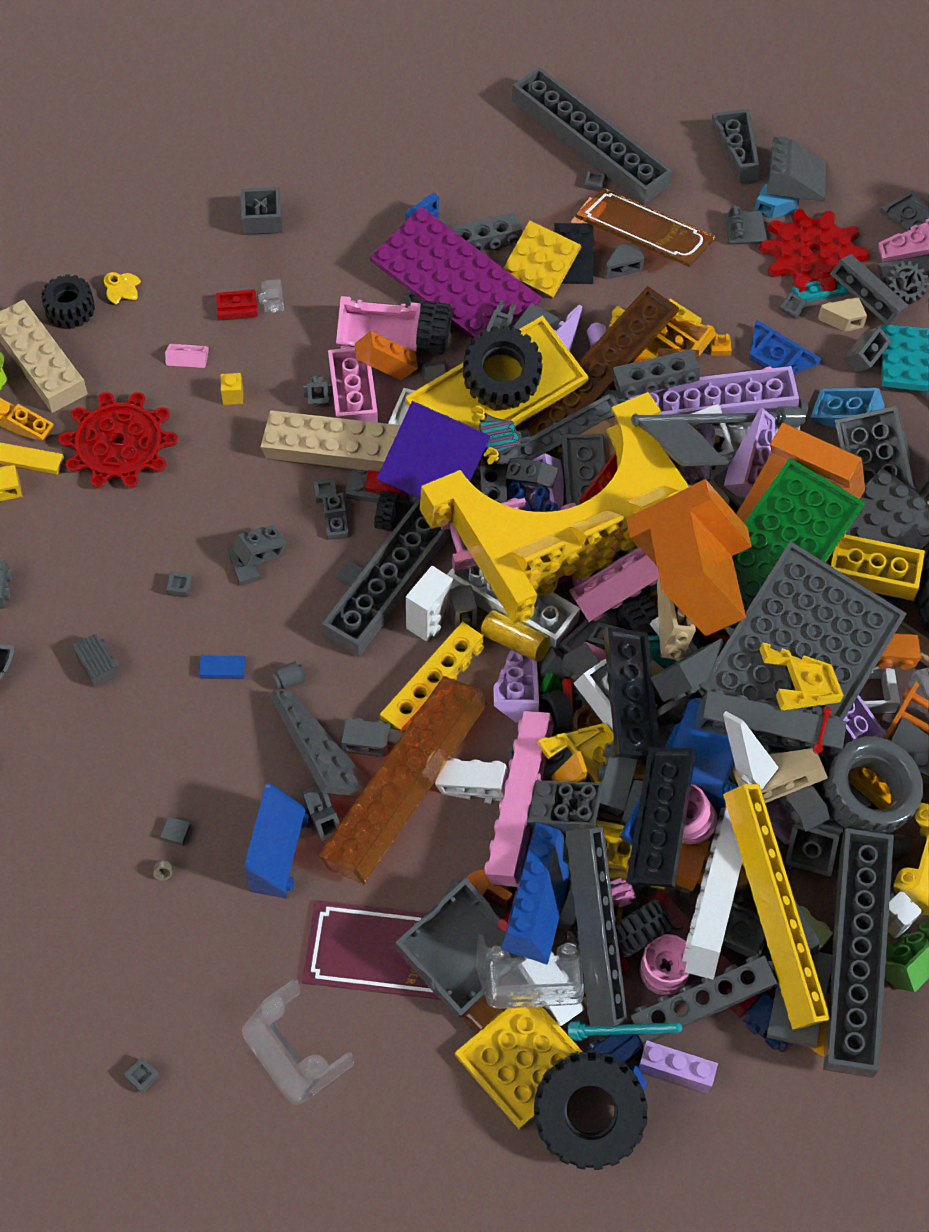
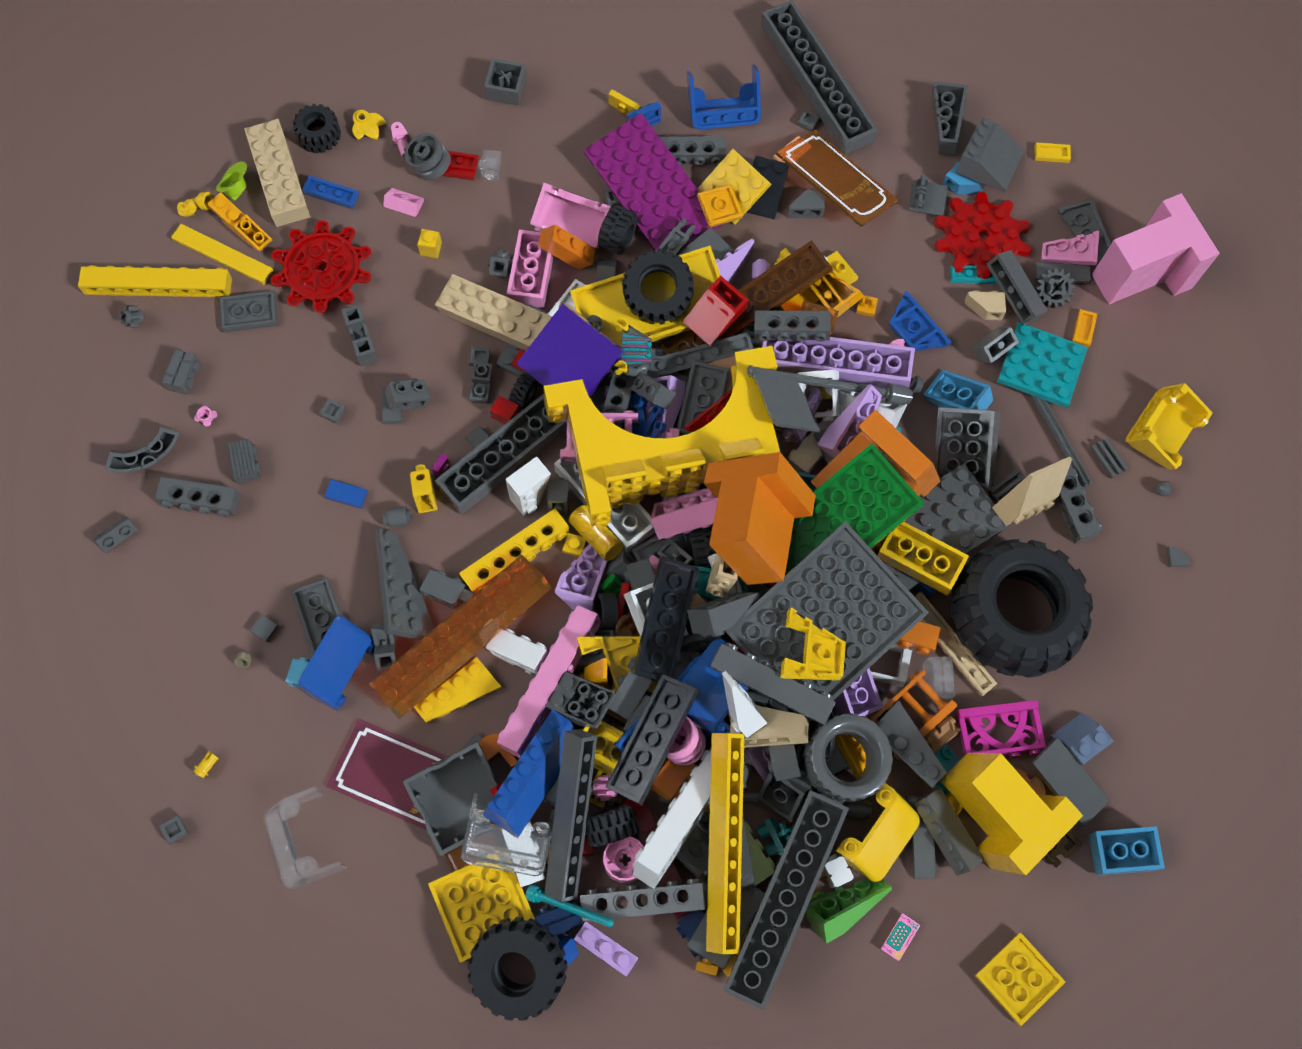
camera: 15 degrees right, 10 degrees up
(21, 706) = (169, 488): none -> dark grey brick
(35, 619) = (204, 410): none -> bright pink plate
(49, 505) = (248, 311): none -> dark grey tile
(104, 362) = (330, 192): none -> blue plate
(156, 995) = (205, 765): none -> yellow pin
(163, 290) = (400, 137): none -> bright pink piece
(191, 506) = (360, 335): none -> dark grey arch
(202, 301) = (427, 156): none -> dark grey wheel
(231, 800) = (316, 610): none -> dark grey tile
(234, 867) = (295, 671): none -> medium azure brick
(307, 631) = (423, 489): none -> yellow torso
(320, 611) = (441, 465): none -> magenta plate
(371, 537) = (504, 410): none -> red brick
(393, 205) = (622, 103): none -> yellow plate
(419, 839) = (462, 688): none -> yellow wing
(494, 657) = (574, 545): none -> yellow plate
(521, 186) = (728, 111): none -> blue windscreen
(534, 279) = (720, 205): none -> light orange tile
(572, 377) = (716, 311): none -> slope
(793, 305) = (945, 284): dark grey tile -> none
(794, 1056) = (706, 967): none -> light orange plate
(809, 892) = (771, 828): none -> teal hips
(818, 748) = (802, 719): red hinge -> none
(855, 157) = (1052, 152): none -> yellow tile

